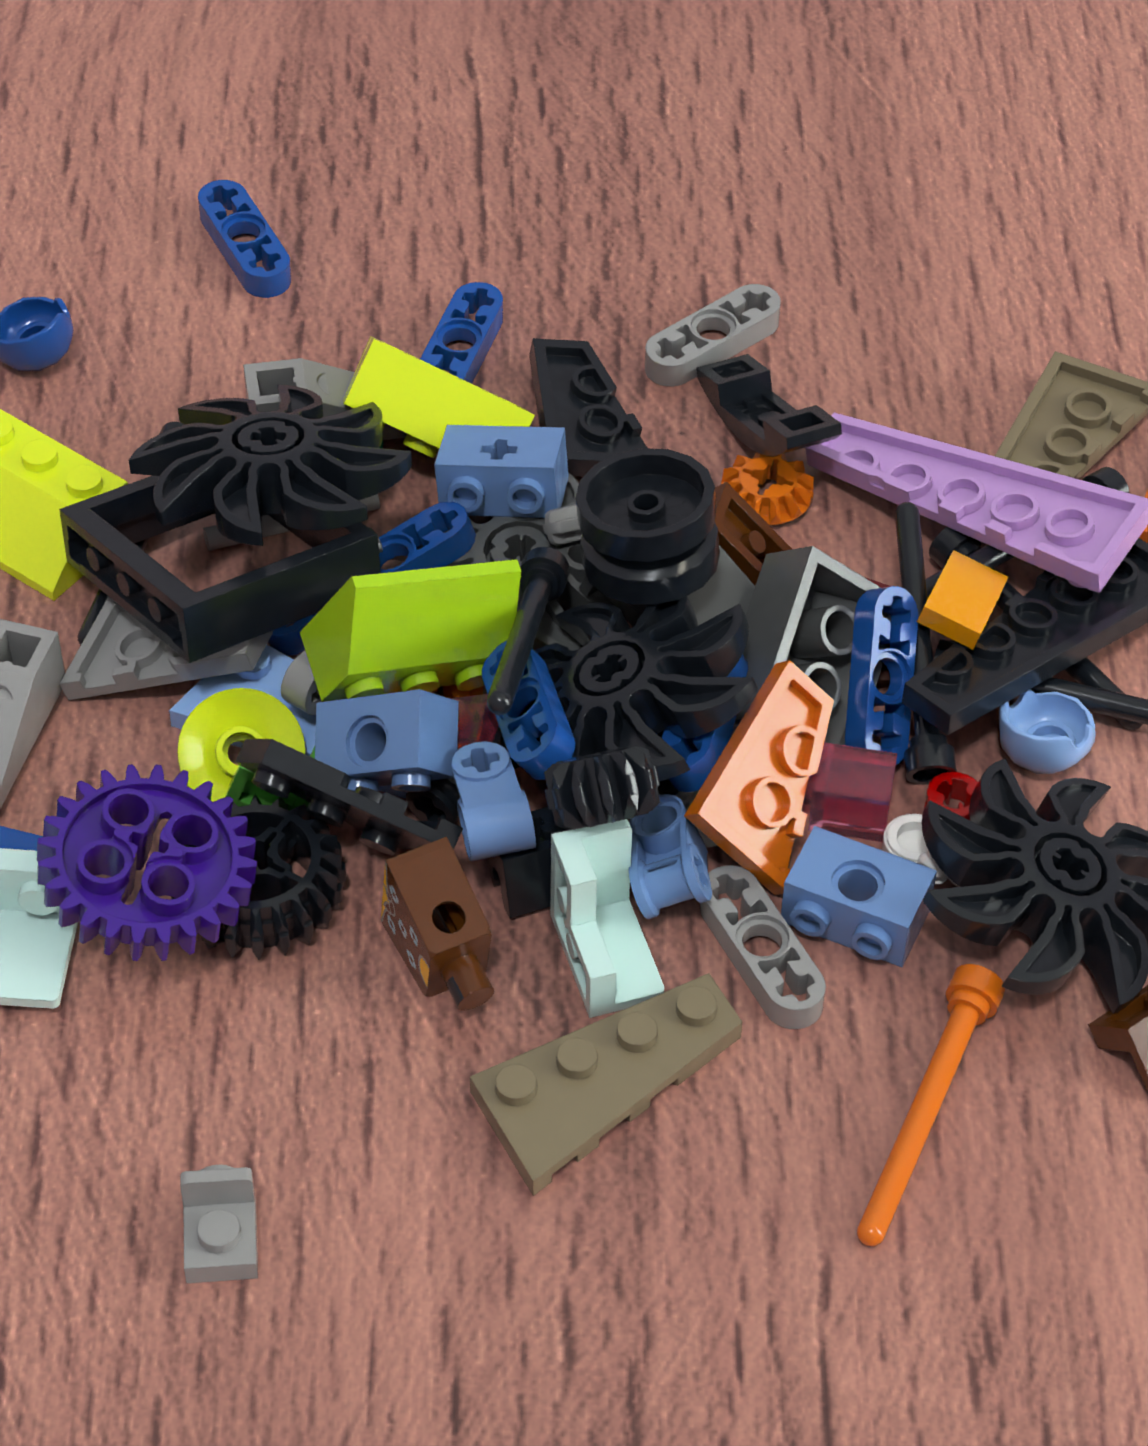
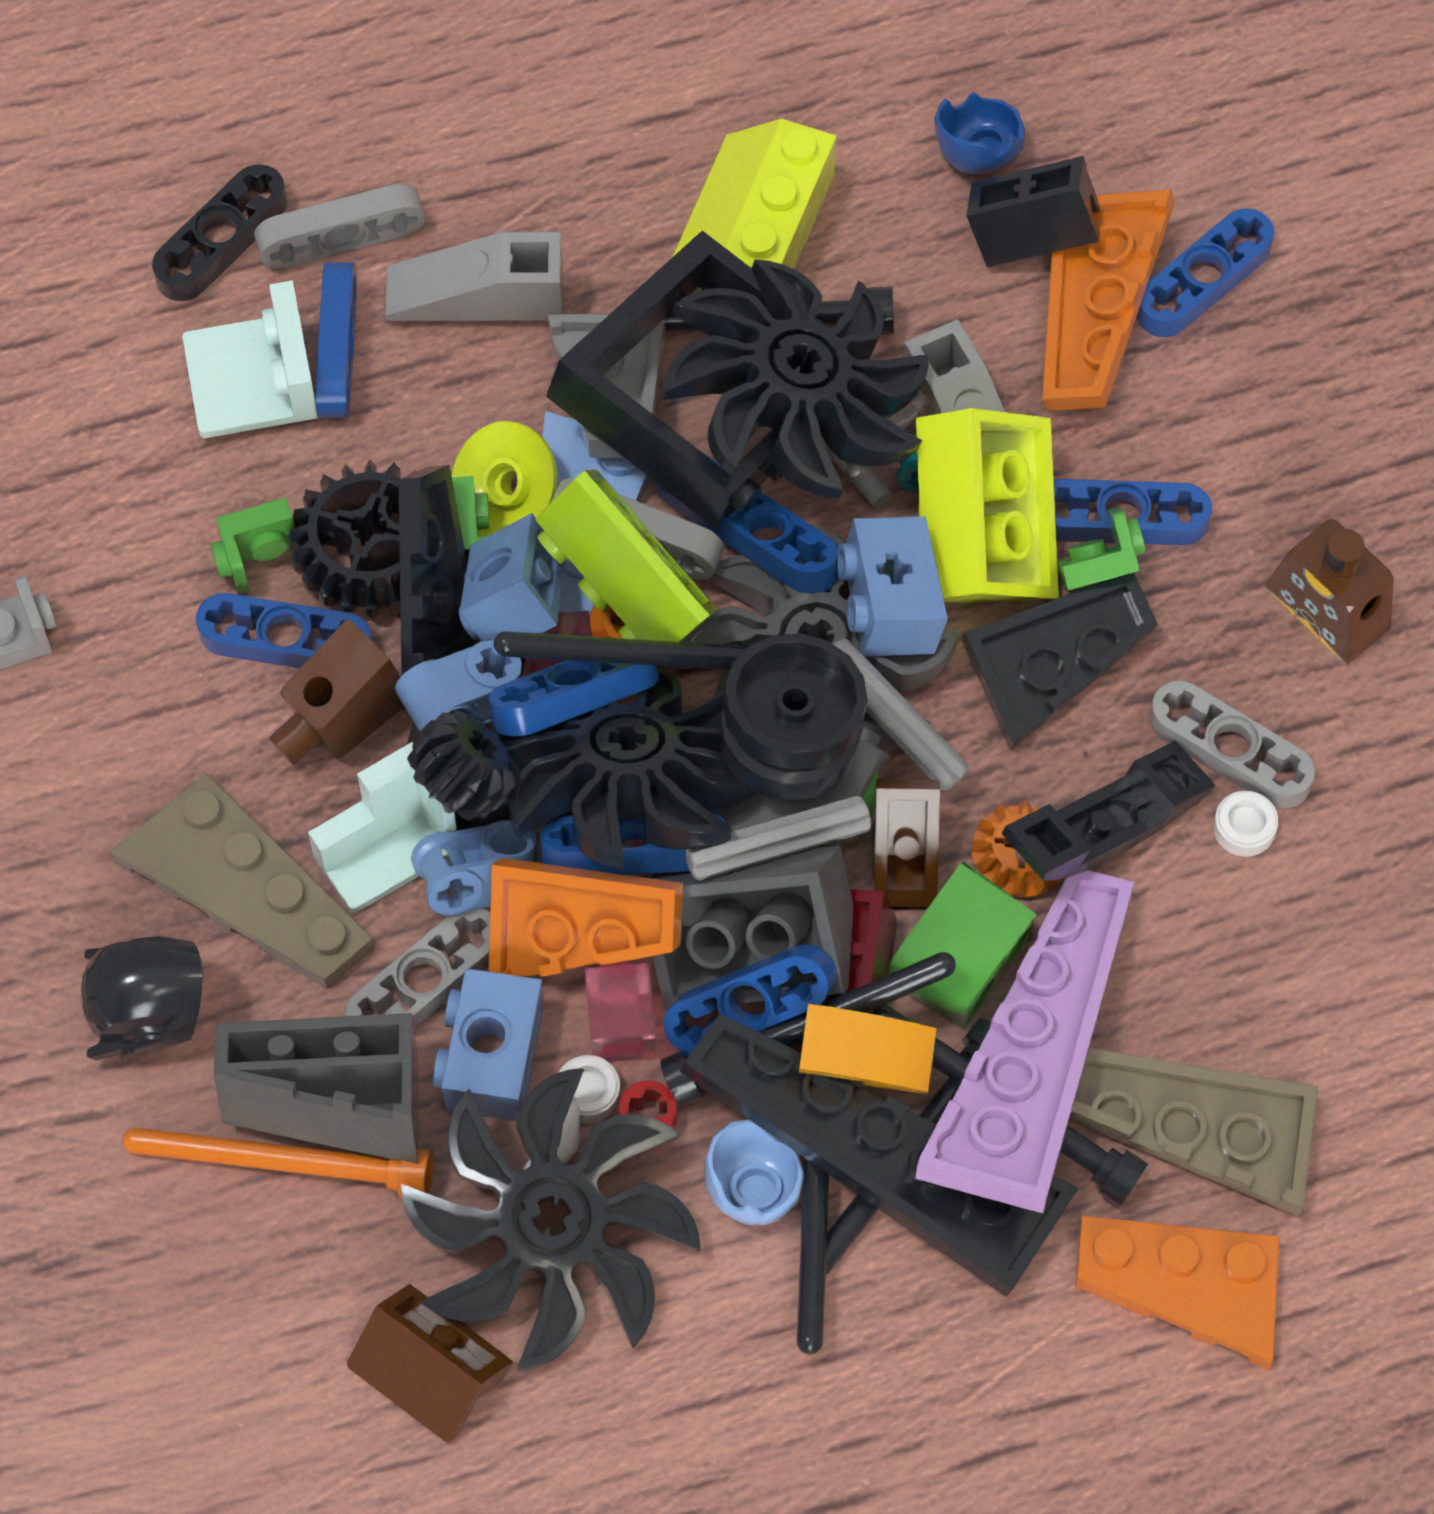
camera: 75 degrees right, 15 degrees up
(91, 841) = (309, 489): dark purple gear -> none
(141, 306) = (1033, 211): none -> black hinge
(217, 294) = (1098, 297): none -> orange wing
(217, 991) = (250, 535): none -> bright green bracket
(327, 1007) = (237, 640): none -> blue beam
(513, 350) = (1094, 562): none -> bright green bracket
(598, 222) = (1336, 589): none -> reddish brown torso
(726, 1160) = (141, 995): none -> black helmet
(745, 588) = (781, 838): none -> light grey axle
(788, 347) = (1245, 823): none -> white tile
(851, 524) = (979, 929): none -> bright green piece
(875, 1022) = (323, 1081): none -> dark grey wedge

